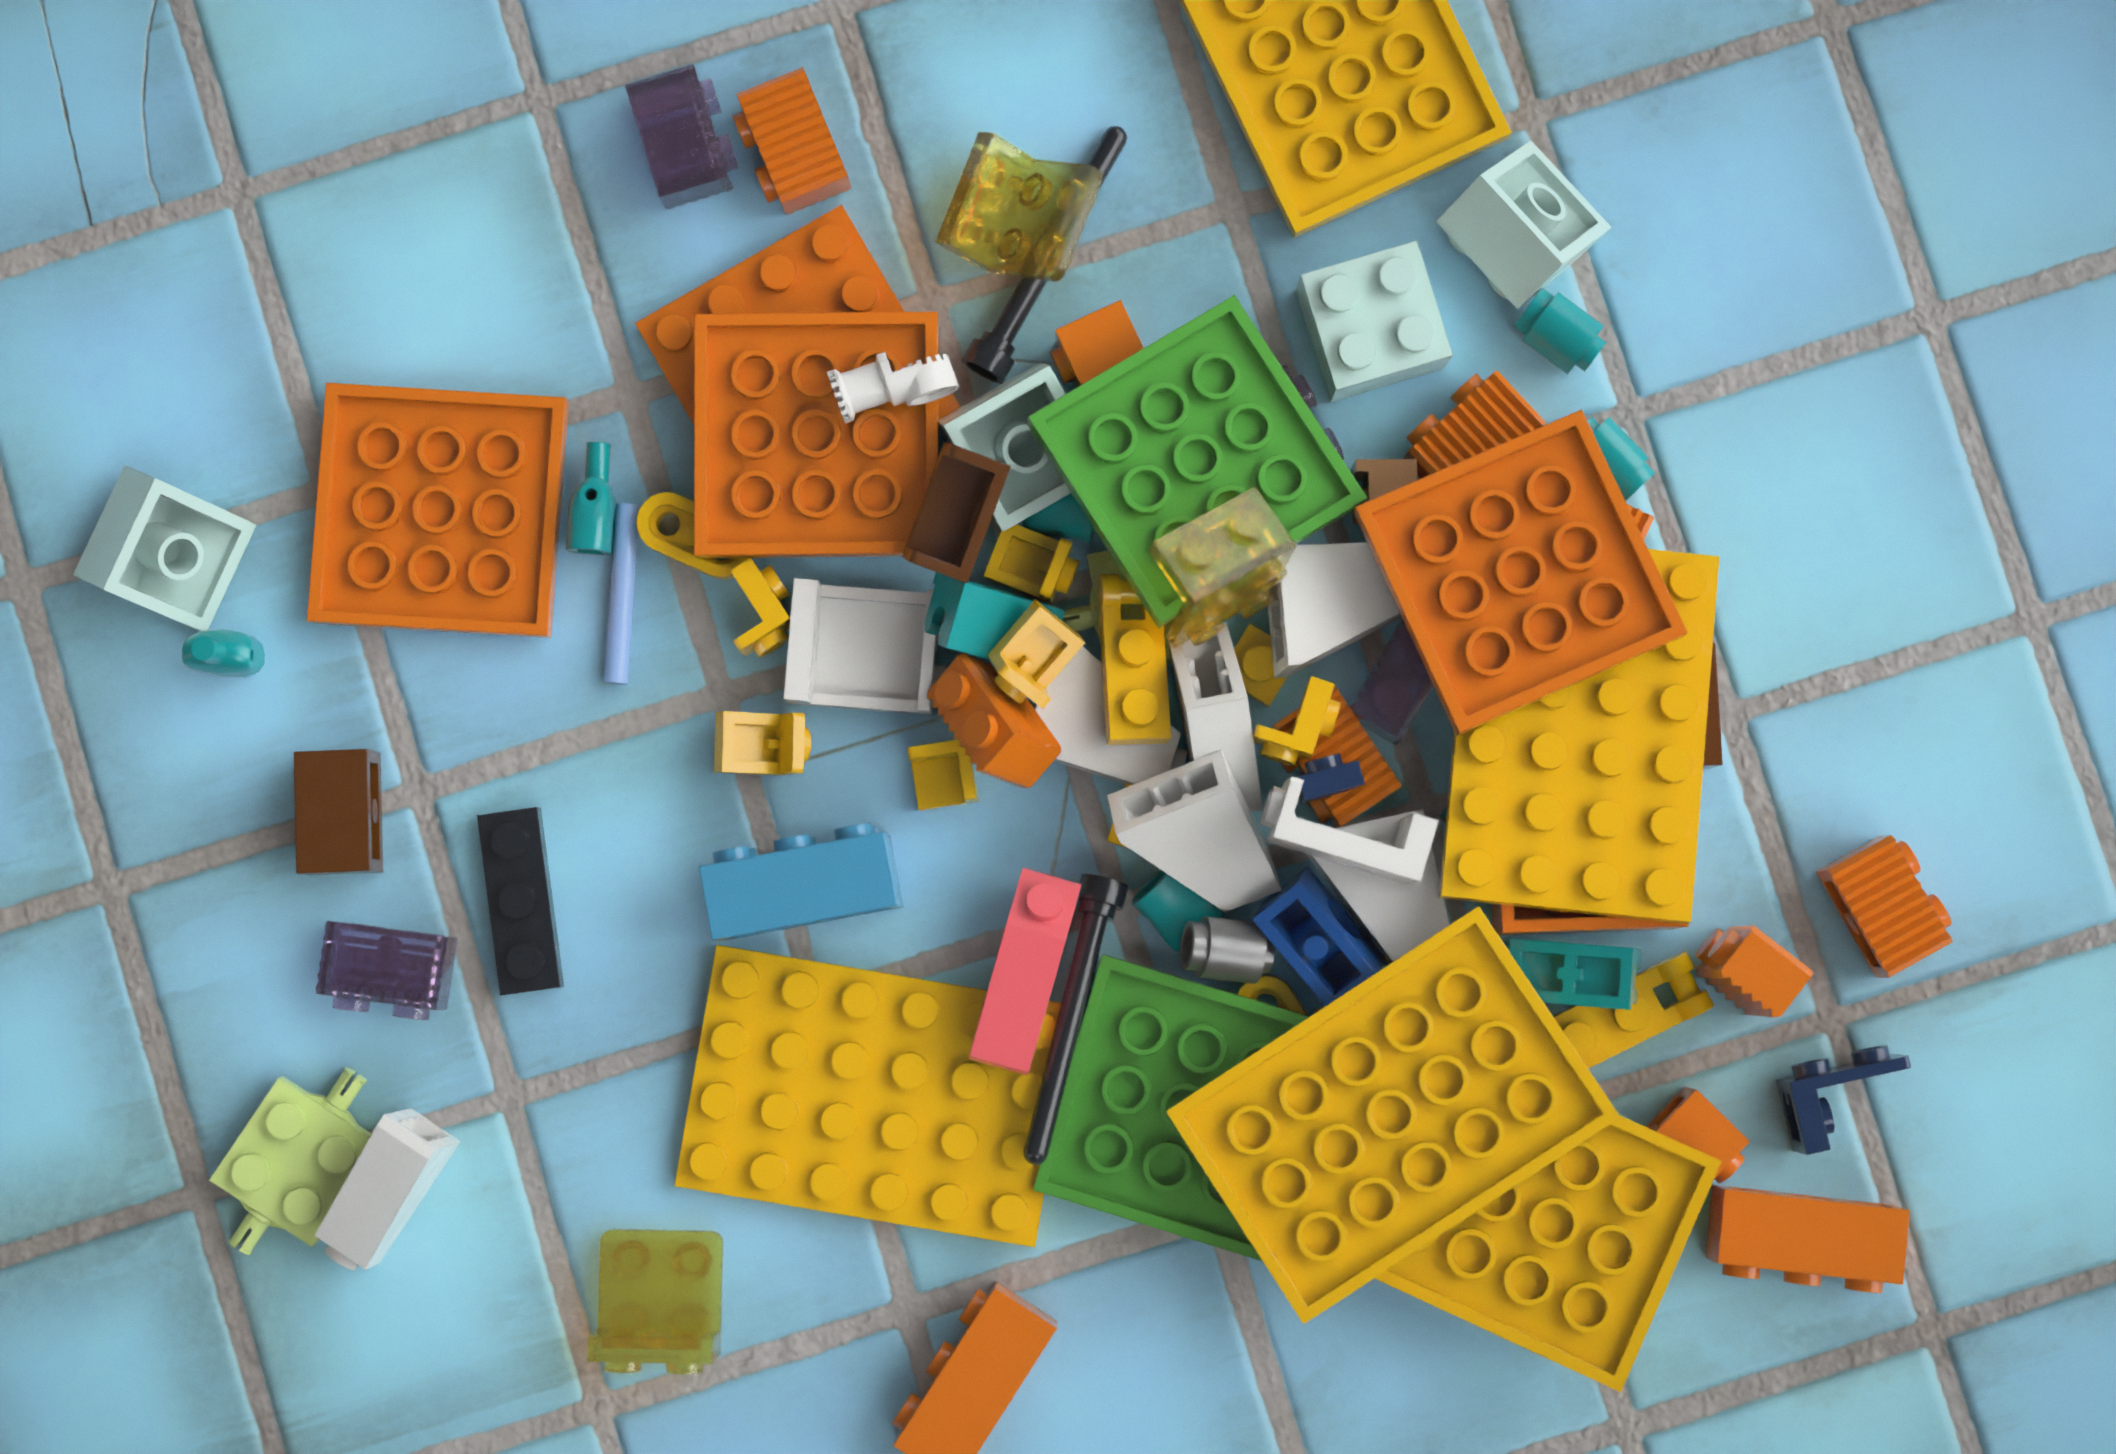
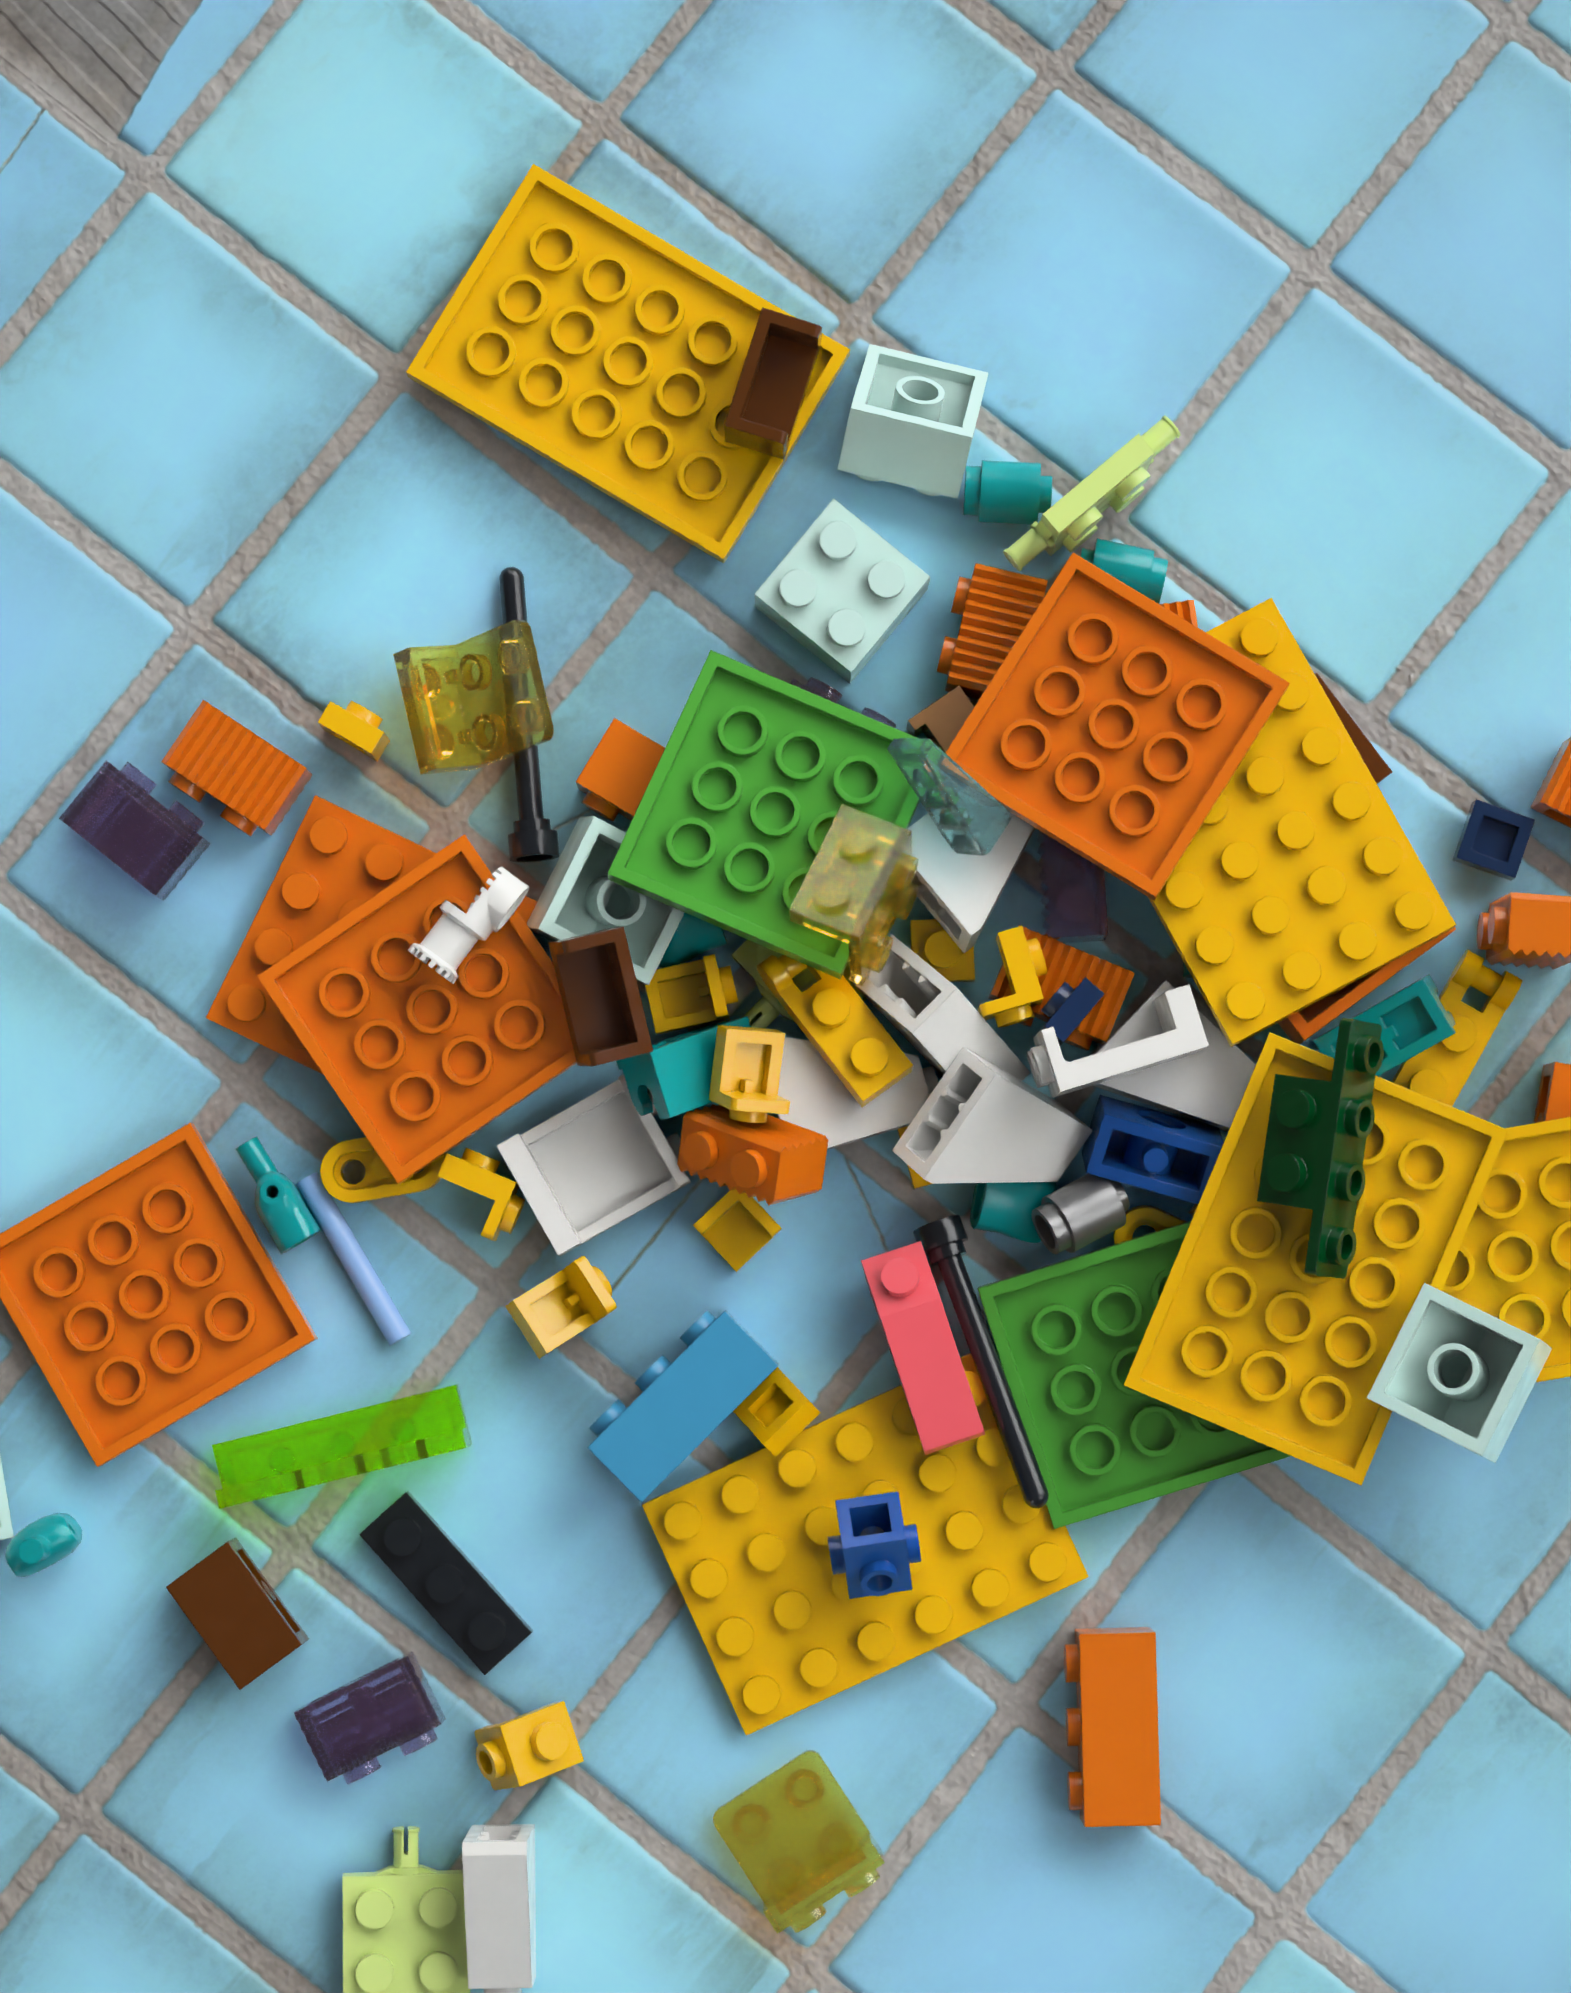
camera: 40 degrees left, 0 degrees up
(495, 1076) = (527, 1747): none -> yellow bracket
(511, 735) = (341, 1446): none -> clear neon green fence
(874, 943) = (776, 1412): none -> yellow plate
(876, 1103) = (874, 1545): none -> blue brick
(909, 171) = (356, 728): none -> yellow plate
(1349, 549) = (956, 803): none -> clear light blue slope
(1430, 115) = (773, 383): none -> reddish brown panel
(1446, 1287) = (1460, 1372): none -> light aqua slope
(1457, 1025) = (1319, 1146): none -> dark green bracket
(1645, 378) = (1111, 484): none -> yellowish green plate
(1767, 876) = (1493, 840): none -> dark blue plate

